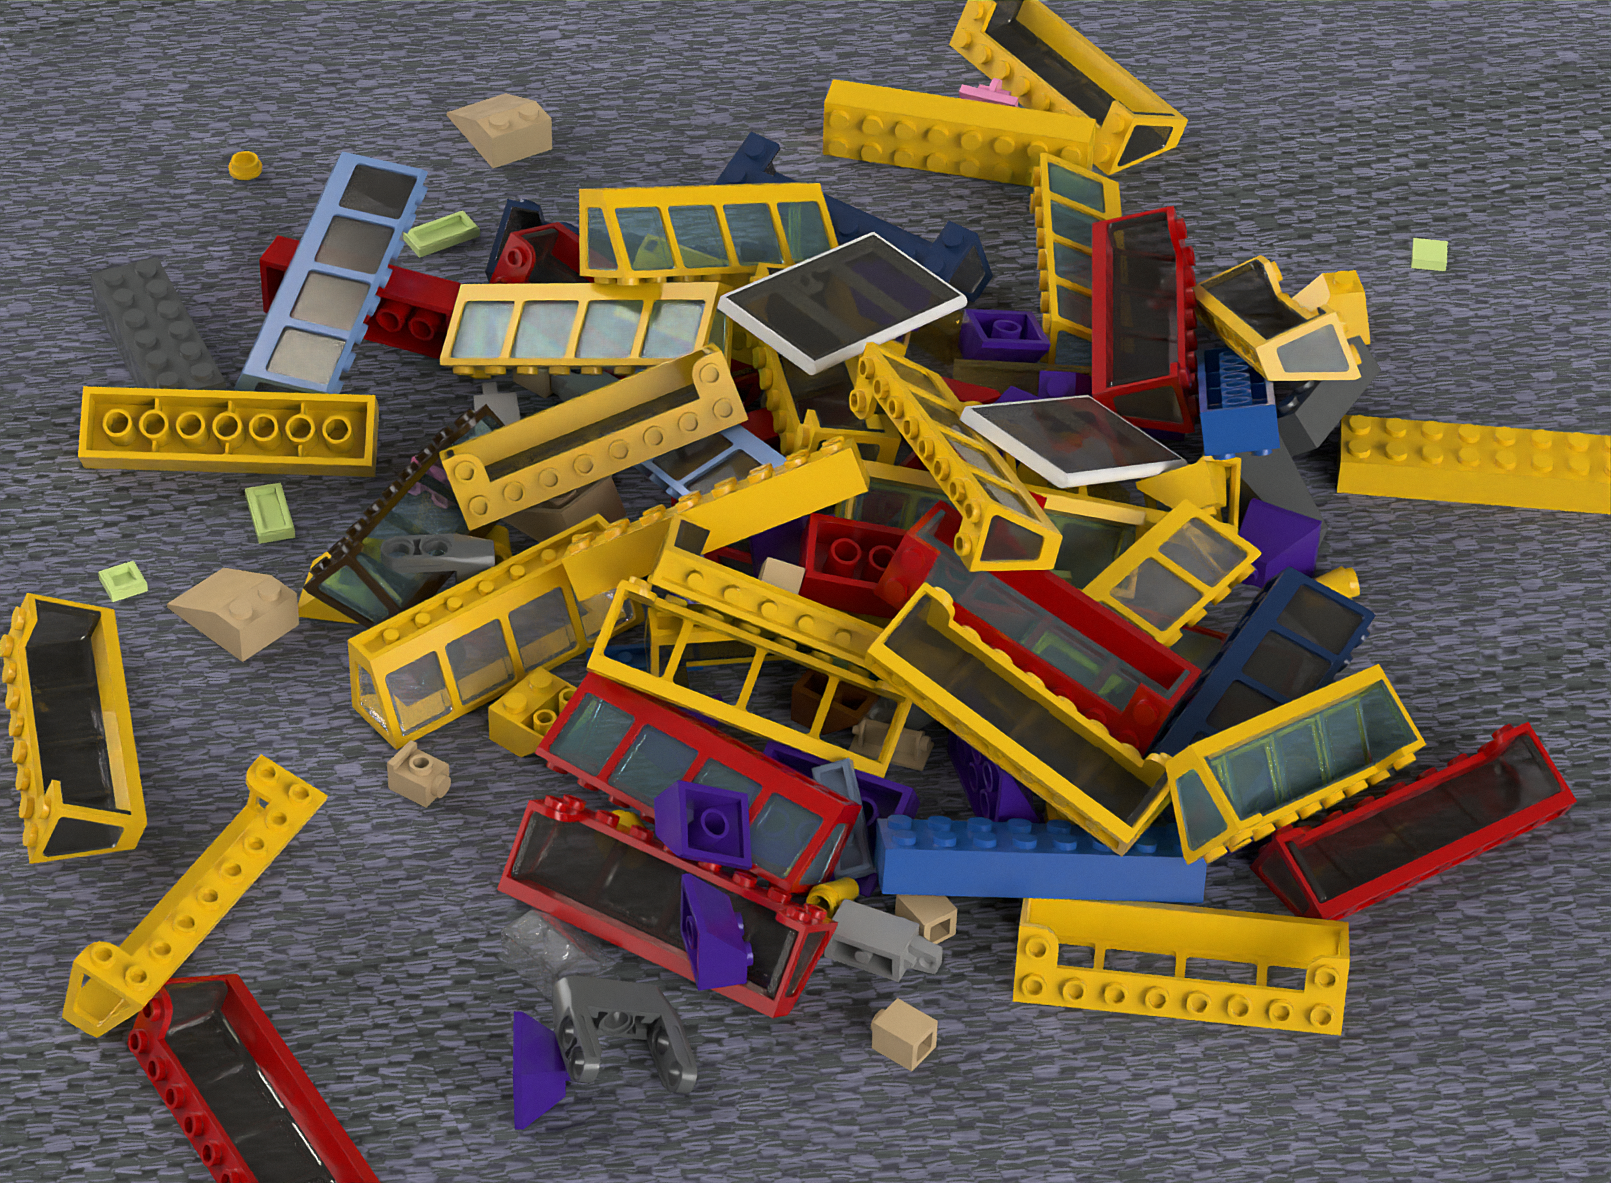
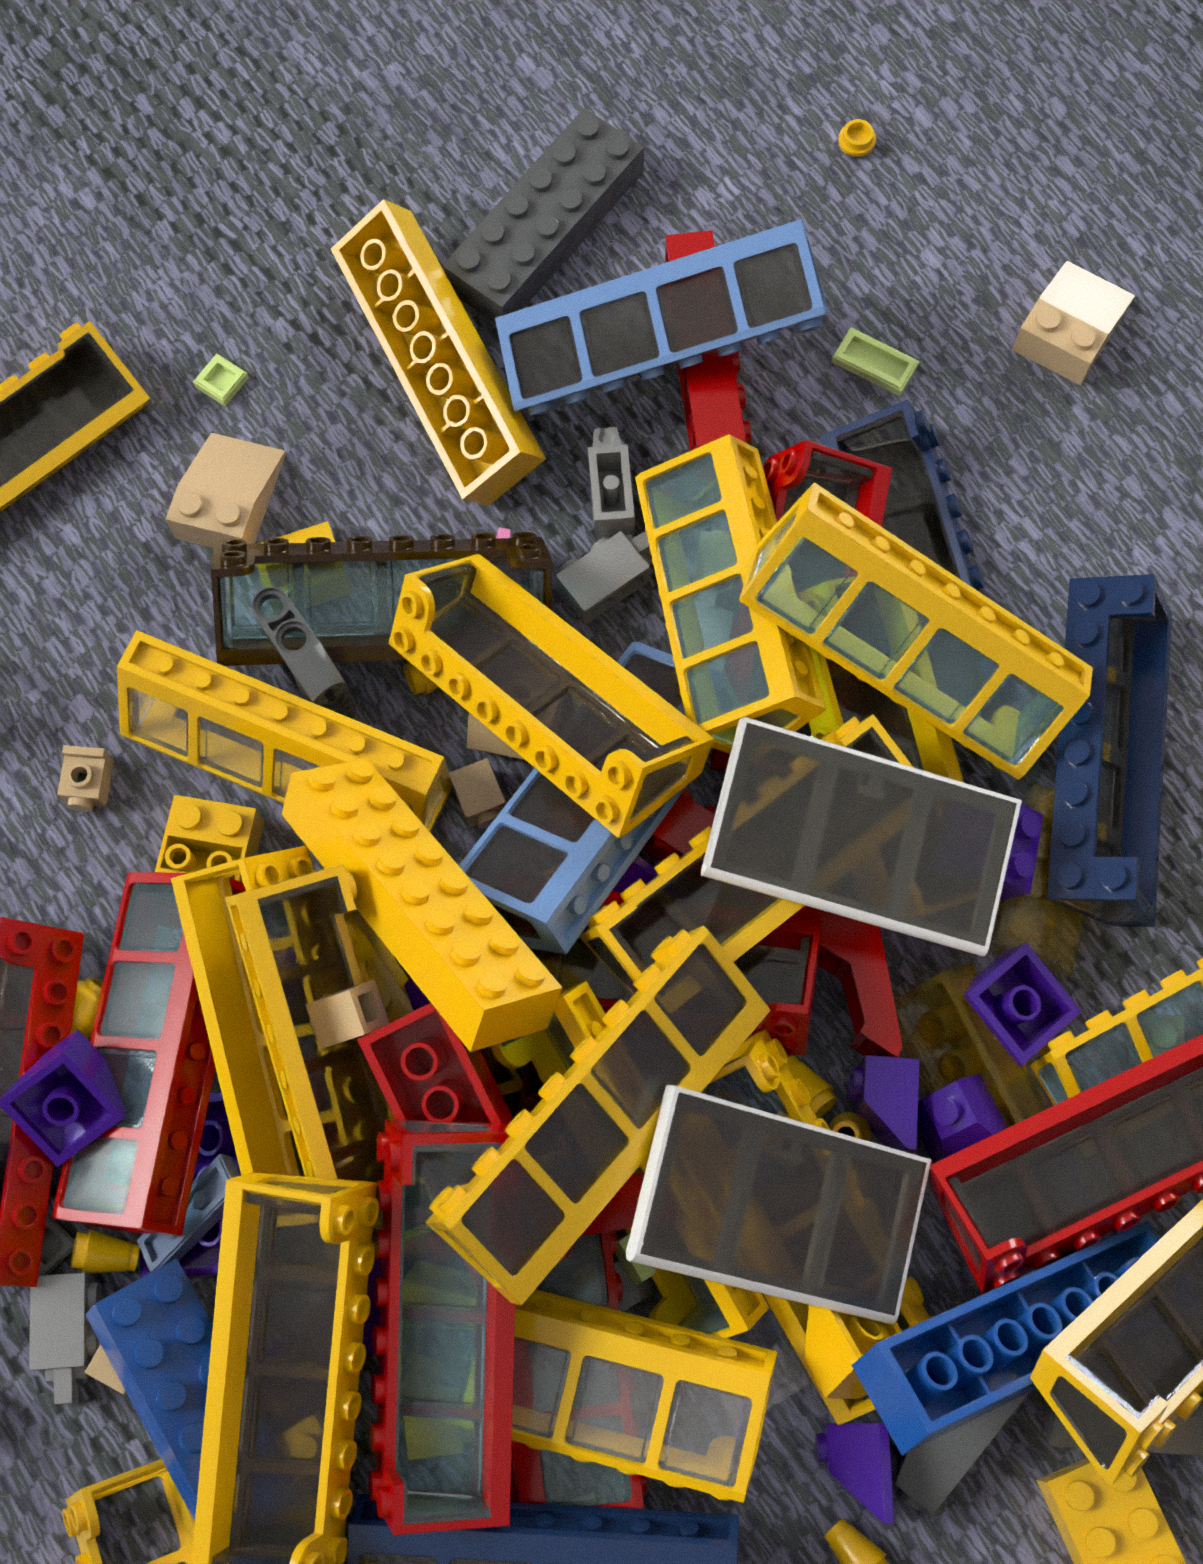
camera: 65 degrees right, 30 degrees up
(269, 513) = (380, 445): yellowish green tile -> none
(427, 390) = (610, 484): none -> light grey hinge

